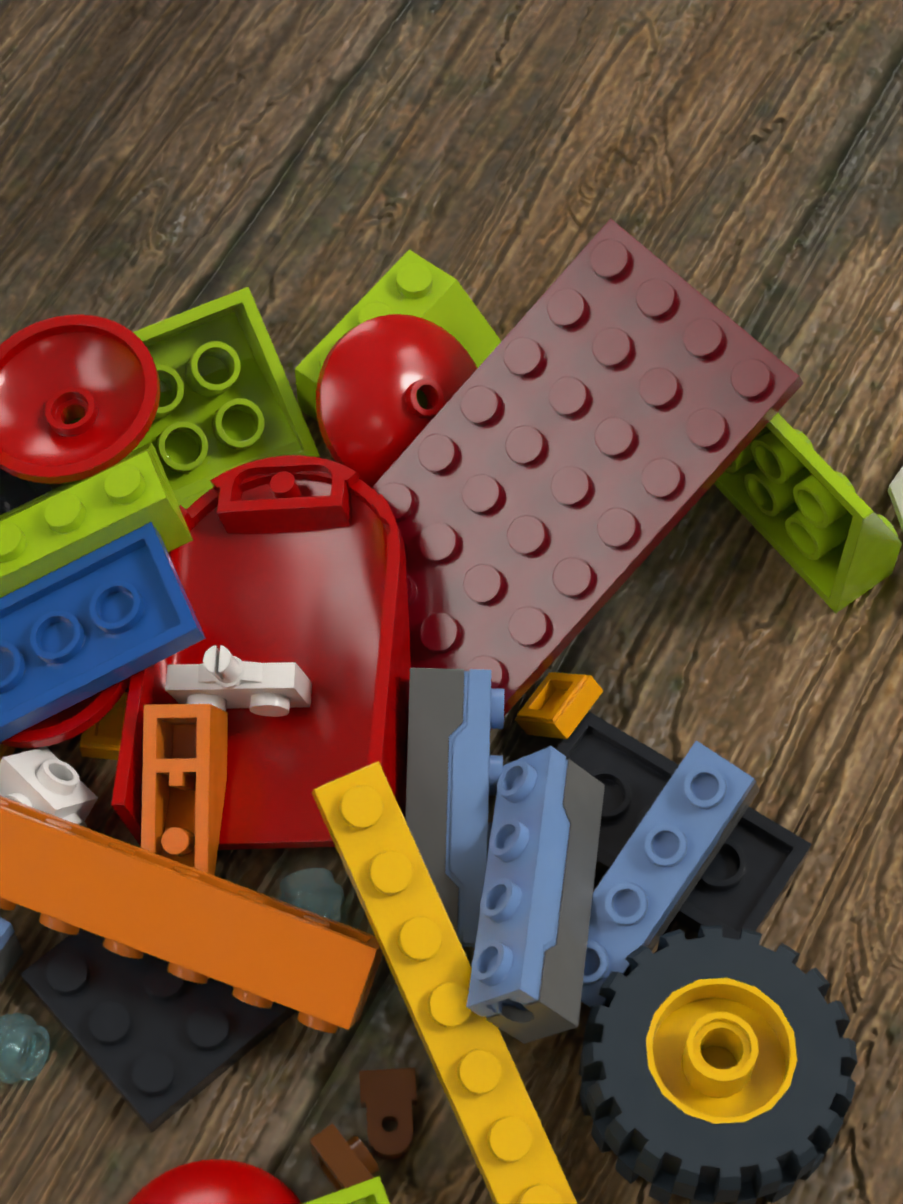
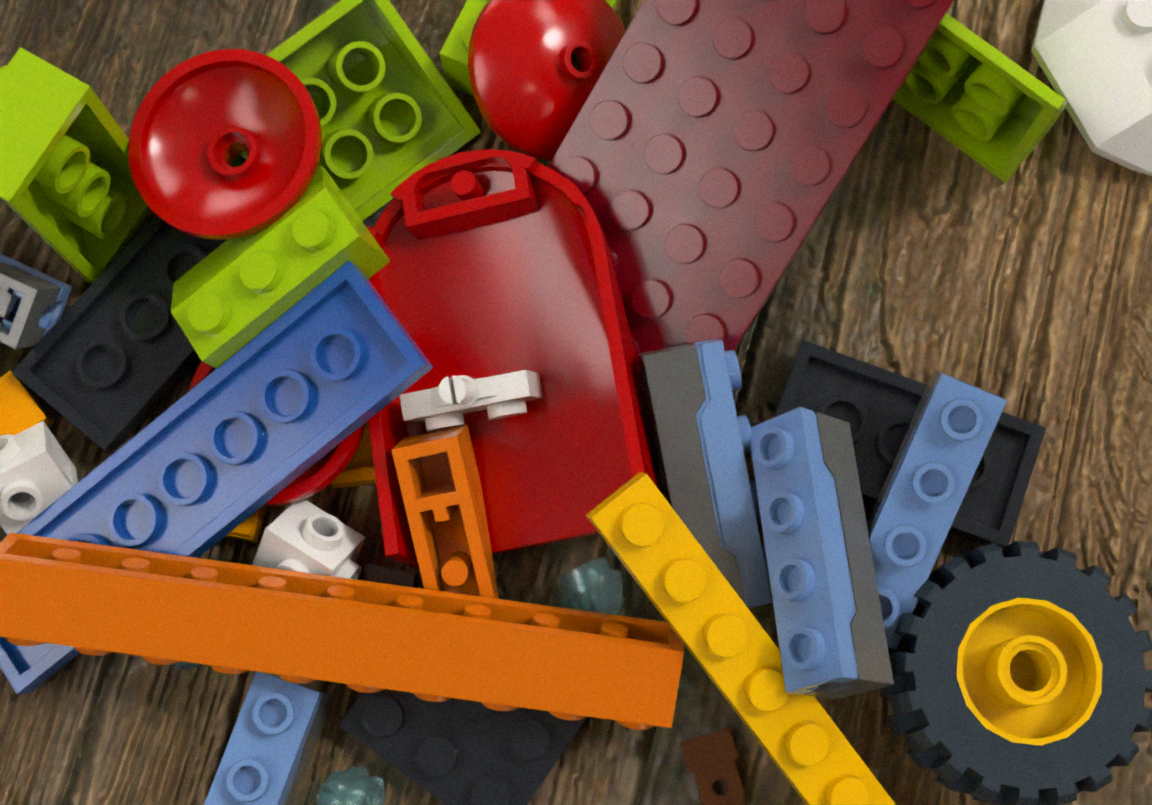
camera: 10 degrees left, 15 degrees up
(558, 705) = (776, 340): light orange tile -> none

